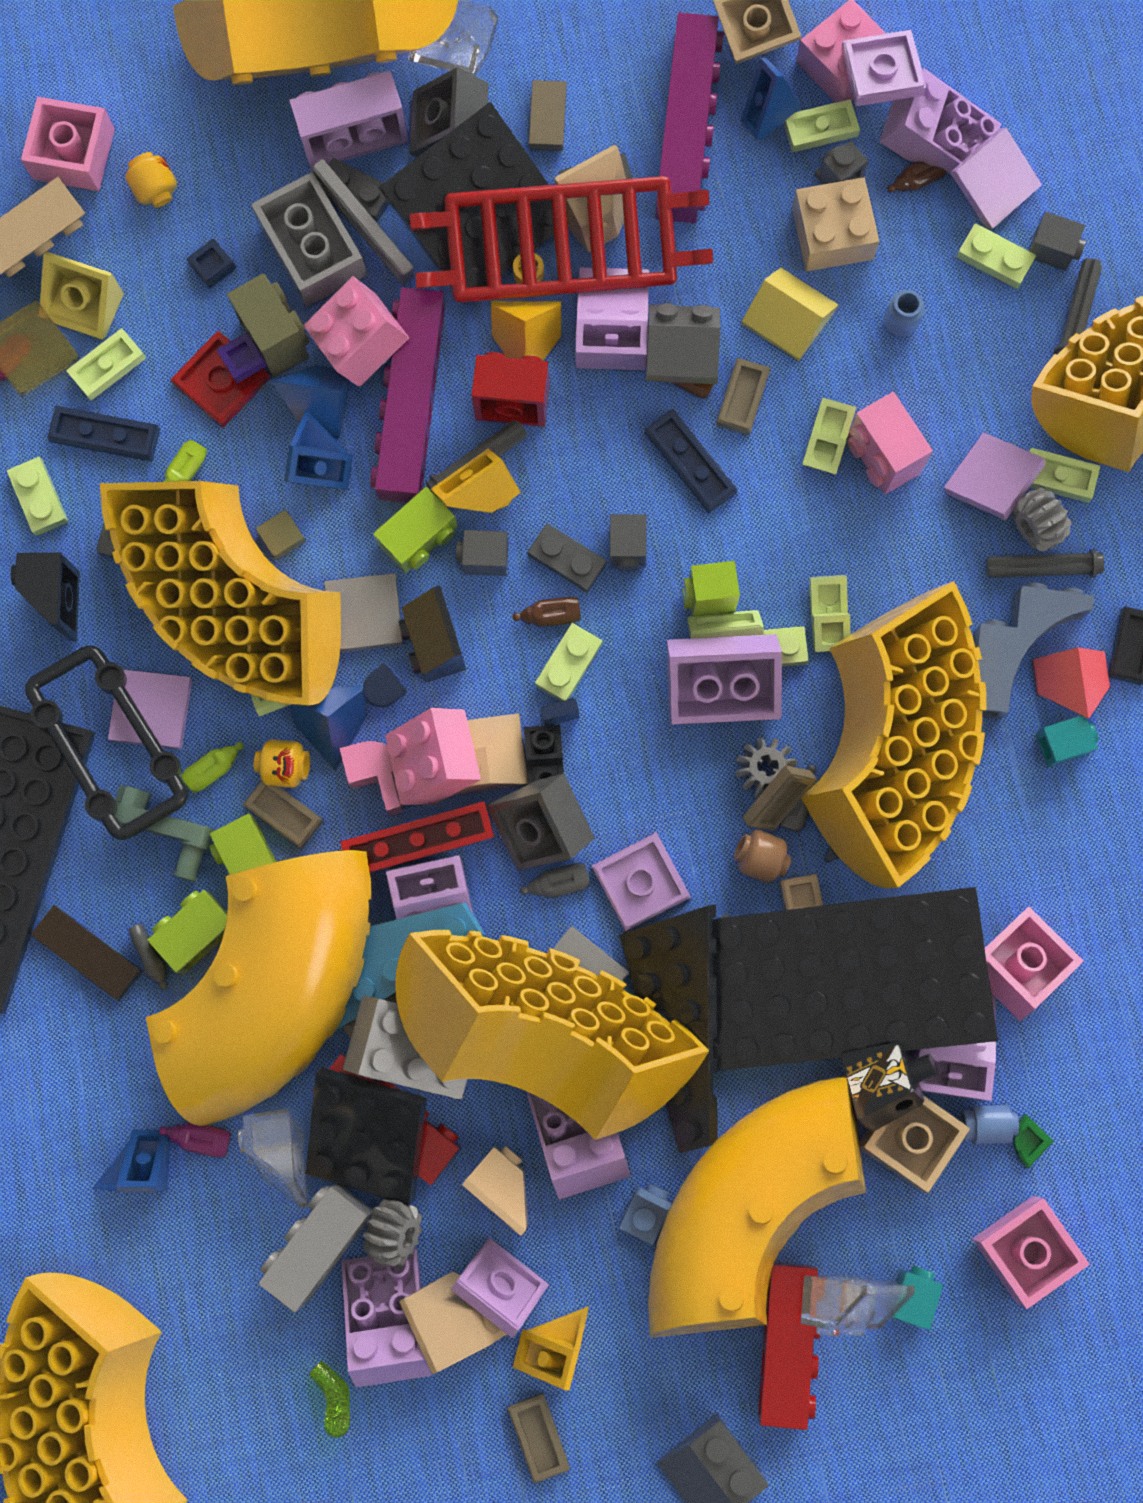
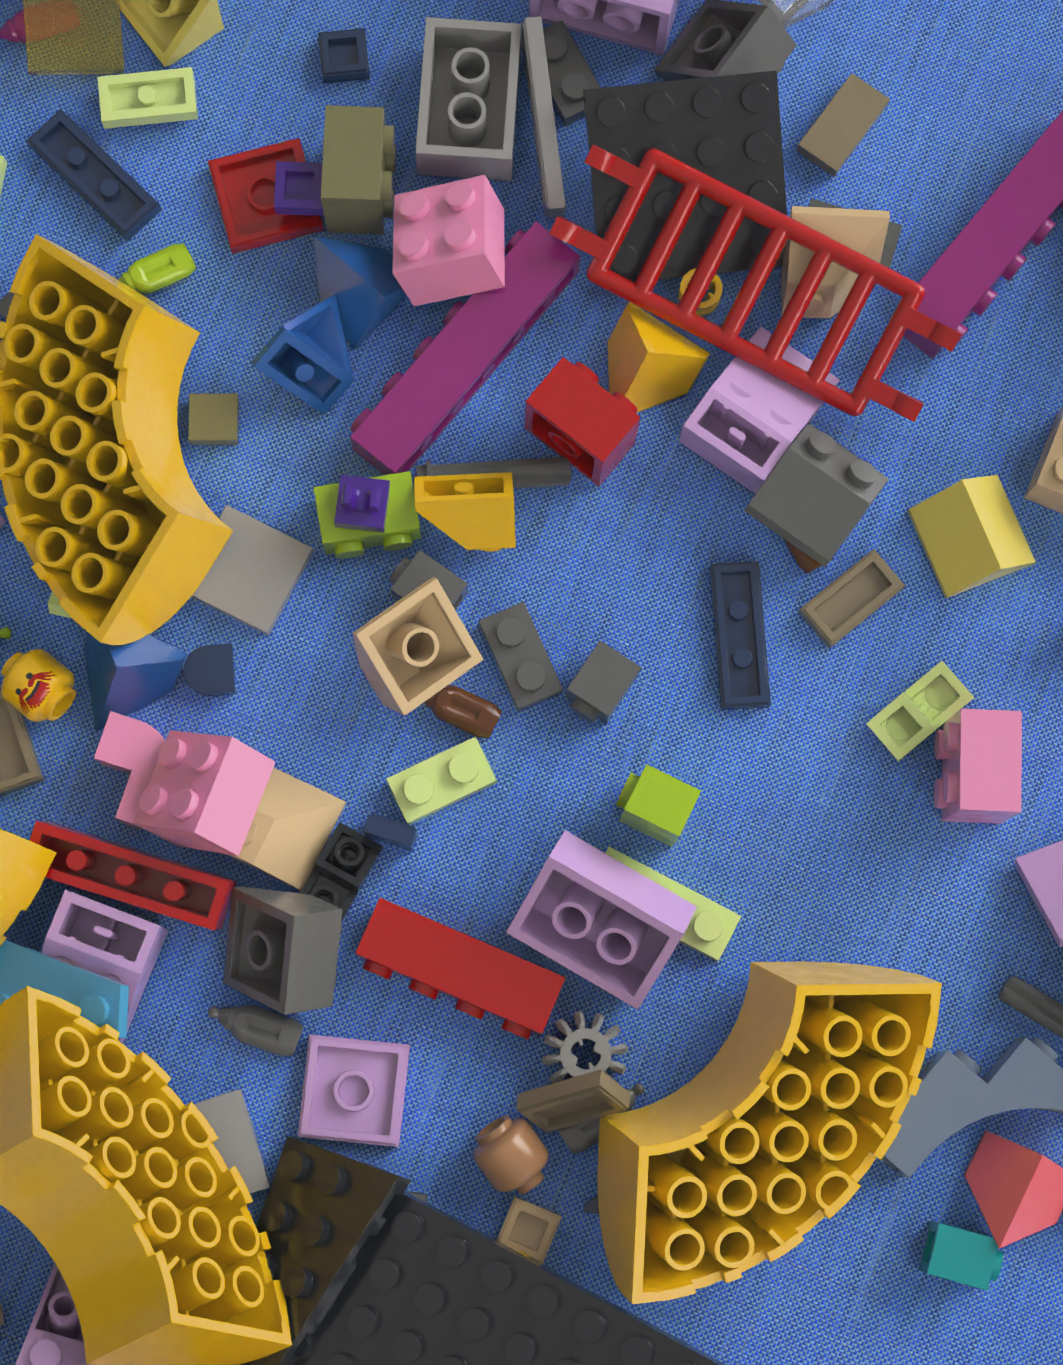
camera: 25 degrees right, 0 degrees up
(410, 523) = (362, 503): none -> dark purple tile
(432, 636) = (304, 649): black slope -> none
(501, 590) = (415, 648): none -> tan slope
(657, 765) = (460, 967): none -> red brick
(725, 625) = (649, 856): yellowish green tile -> none
(829, 611) = (782, 917): yellowish green slope -> none

